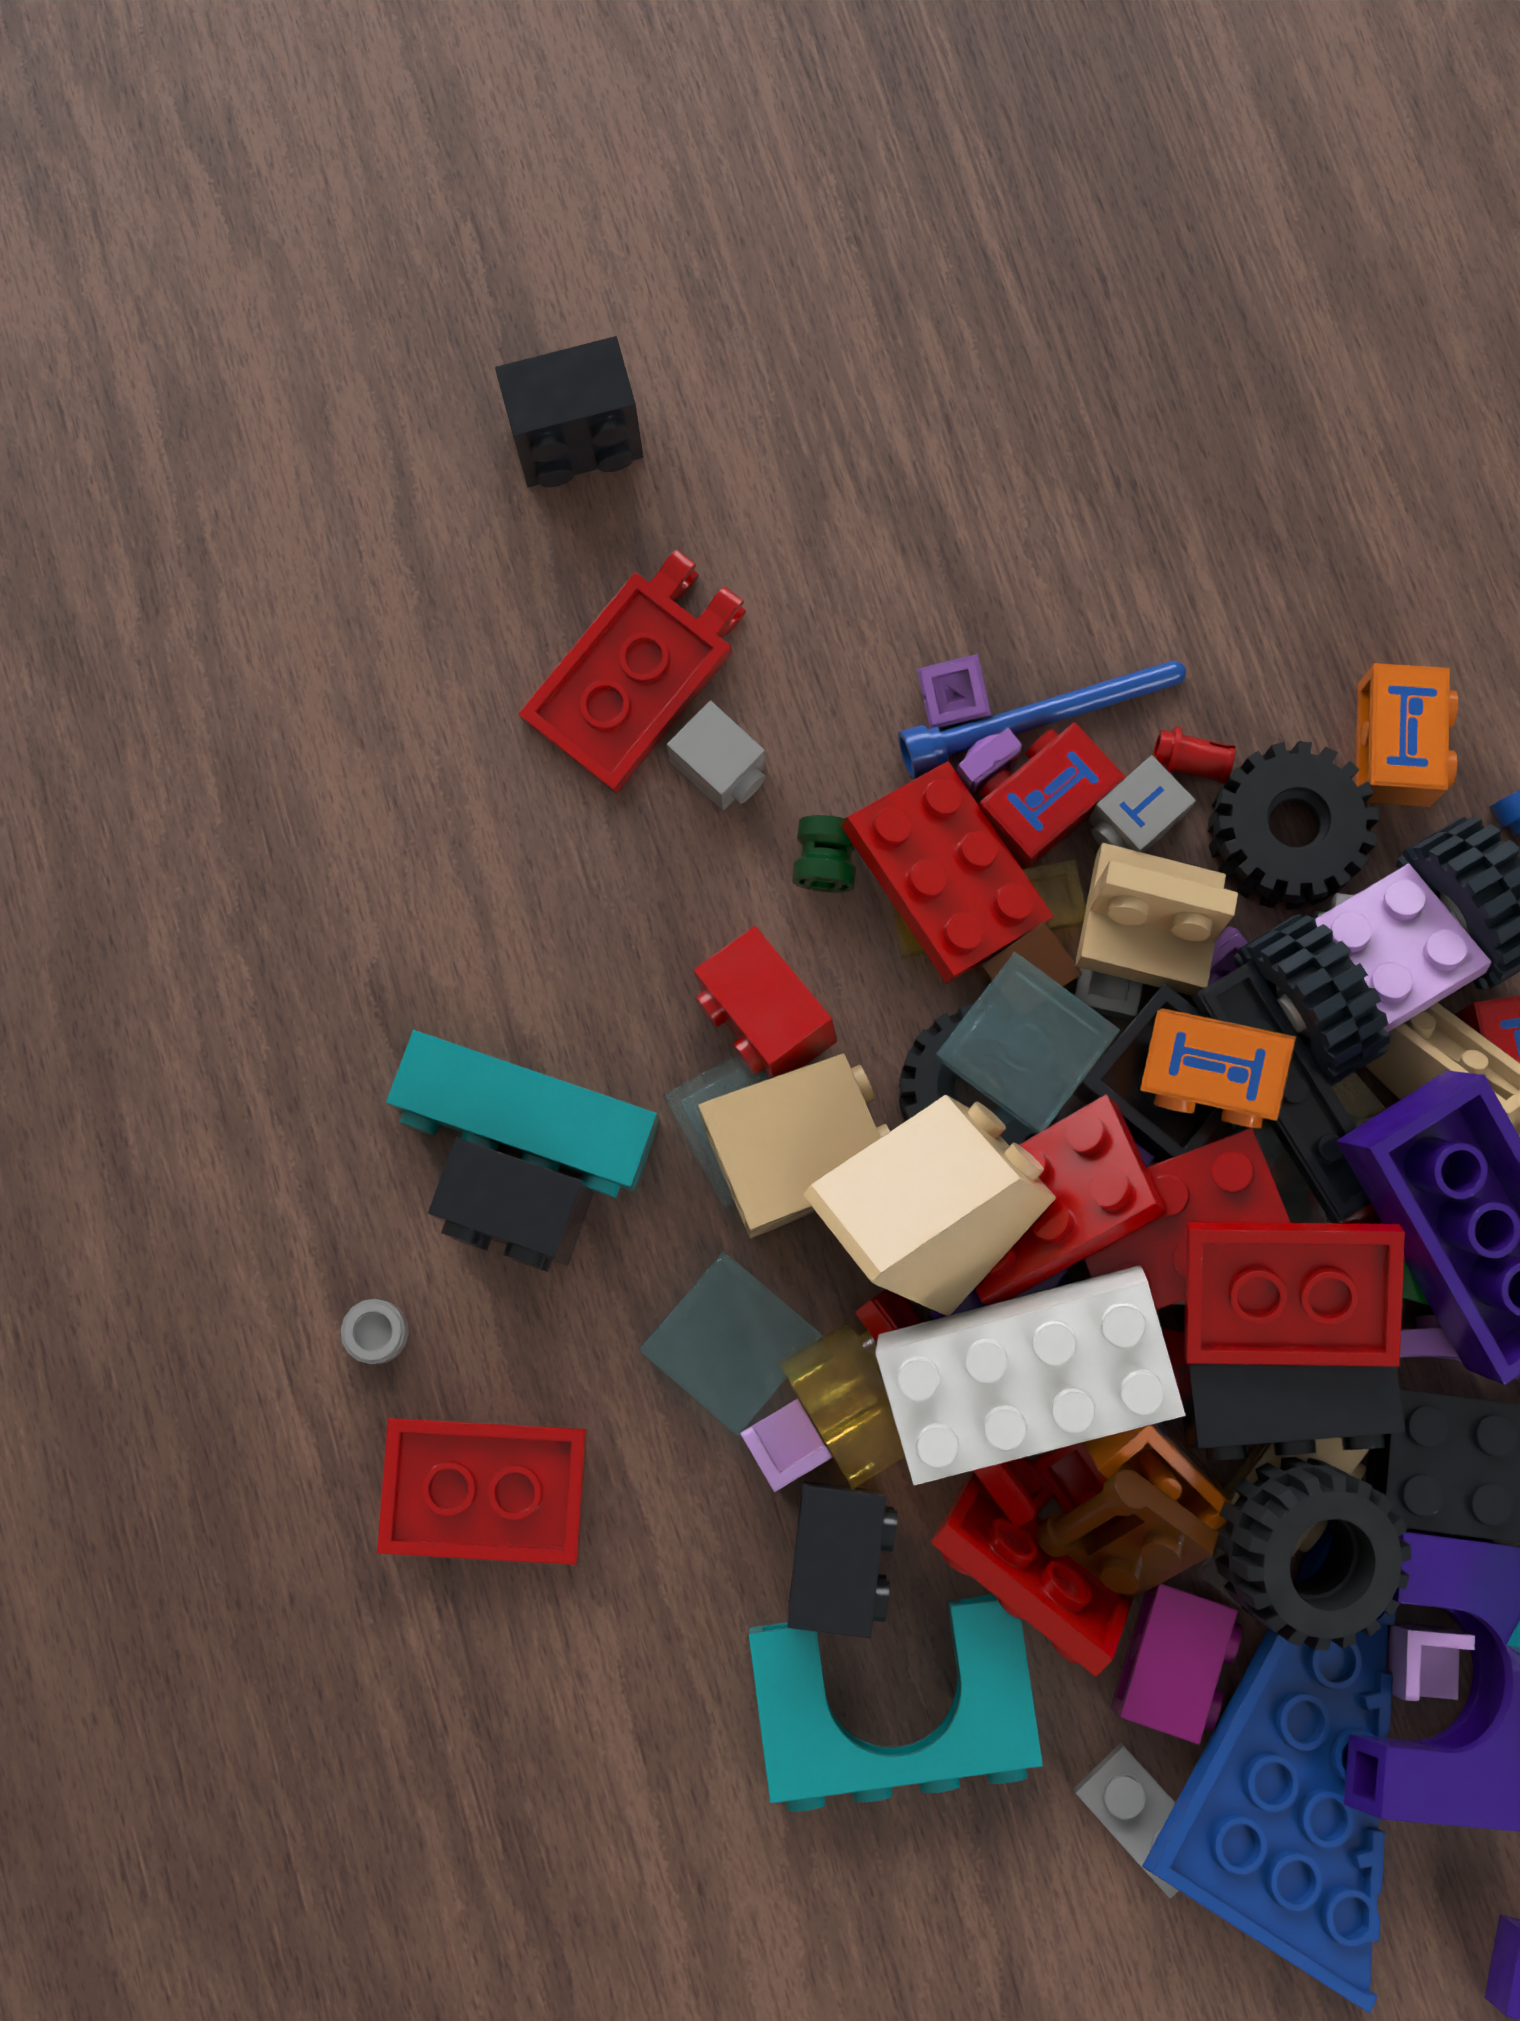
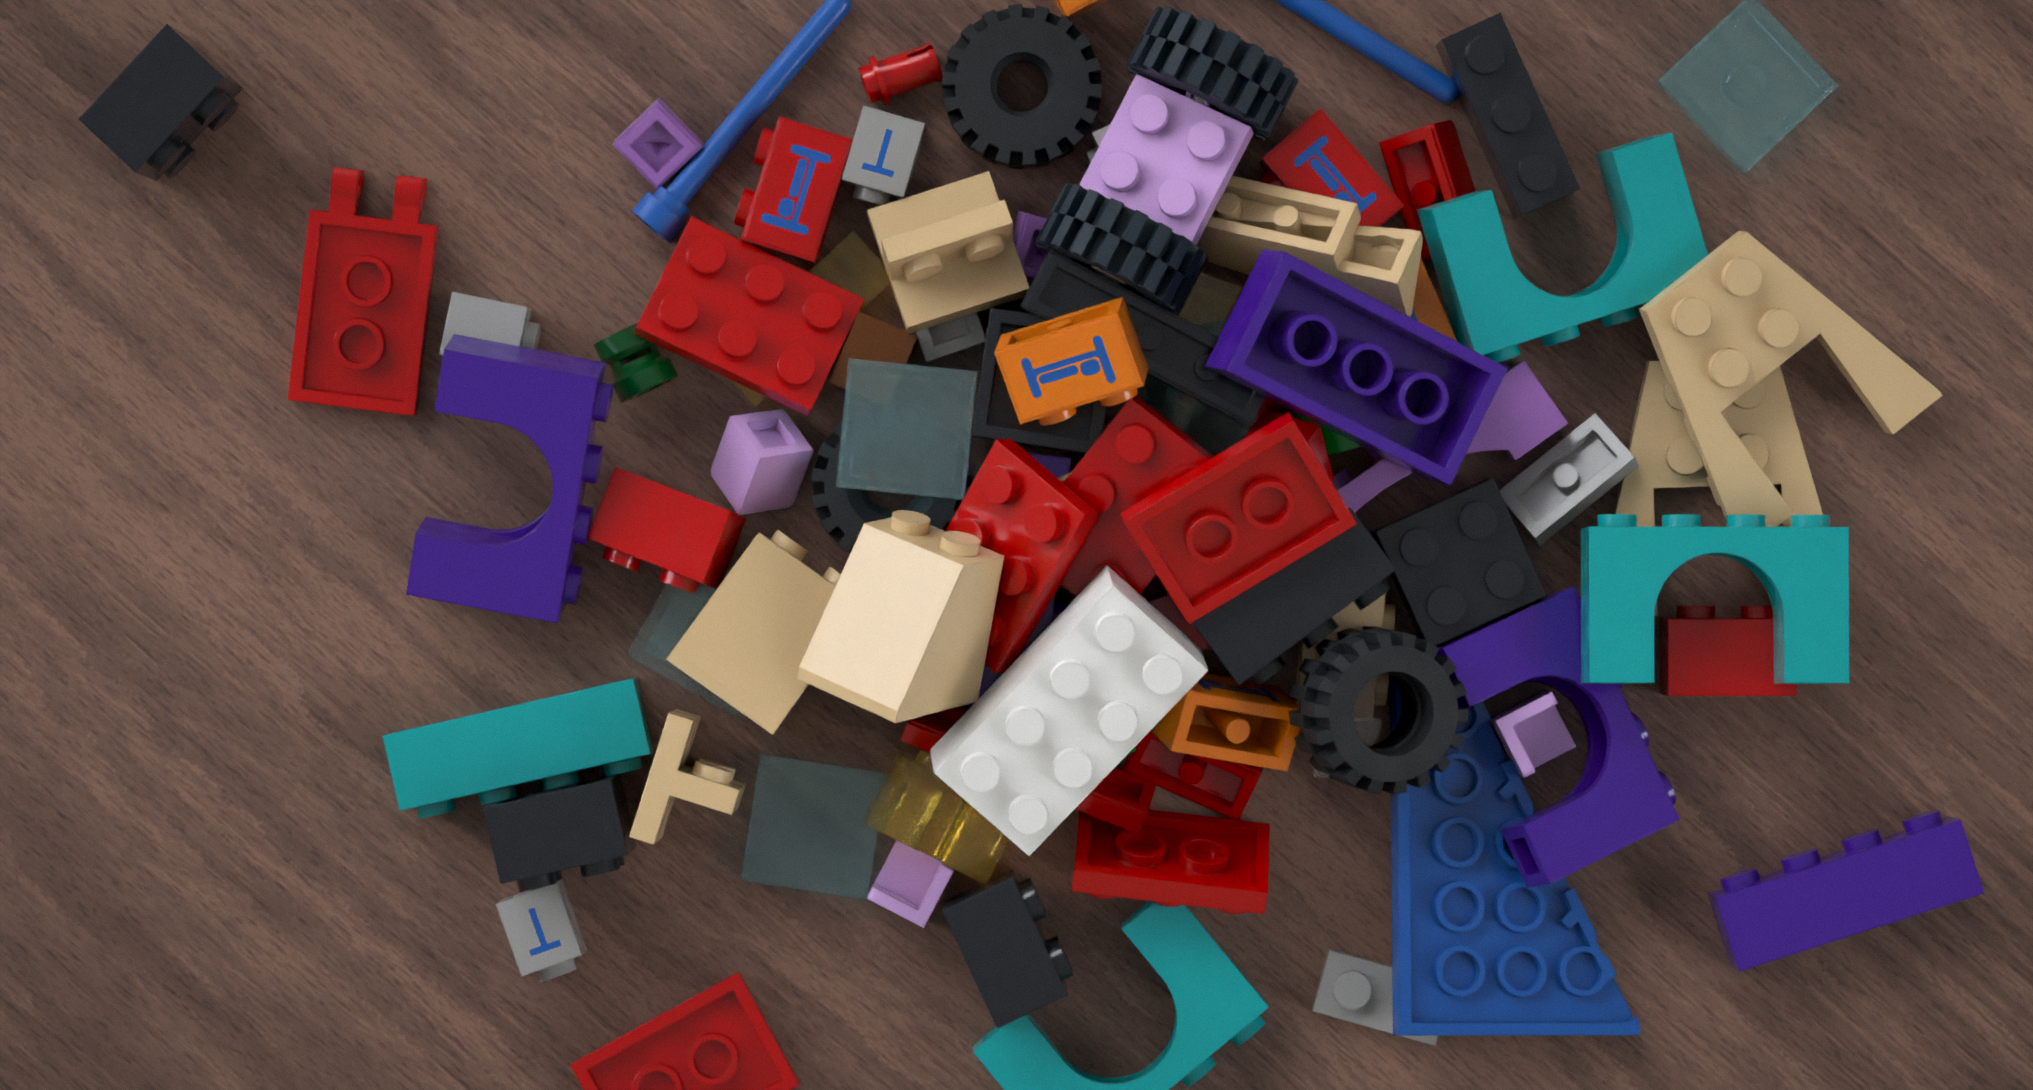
camera: 35 degrees left, 10 degrees up
(374, 1331) = (510, 1002): light grey tile -> none
(440, 1284) = (542, 931): none -> light grey brick
(634, 1218) = (669, 777): none -> tan bracket
(739, 846) = (556, 406): none -> dark purple arch
(880, 1001) = (761, 461): none -> lavender panel
(987, 759) = (723, 192): medium lavender tile -> none
(1139, 1550) = (1245, 790): reddish brown plate -> none
(1176, 1662) = (1331, 857): magenta brick -> none

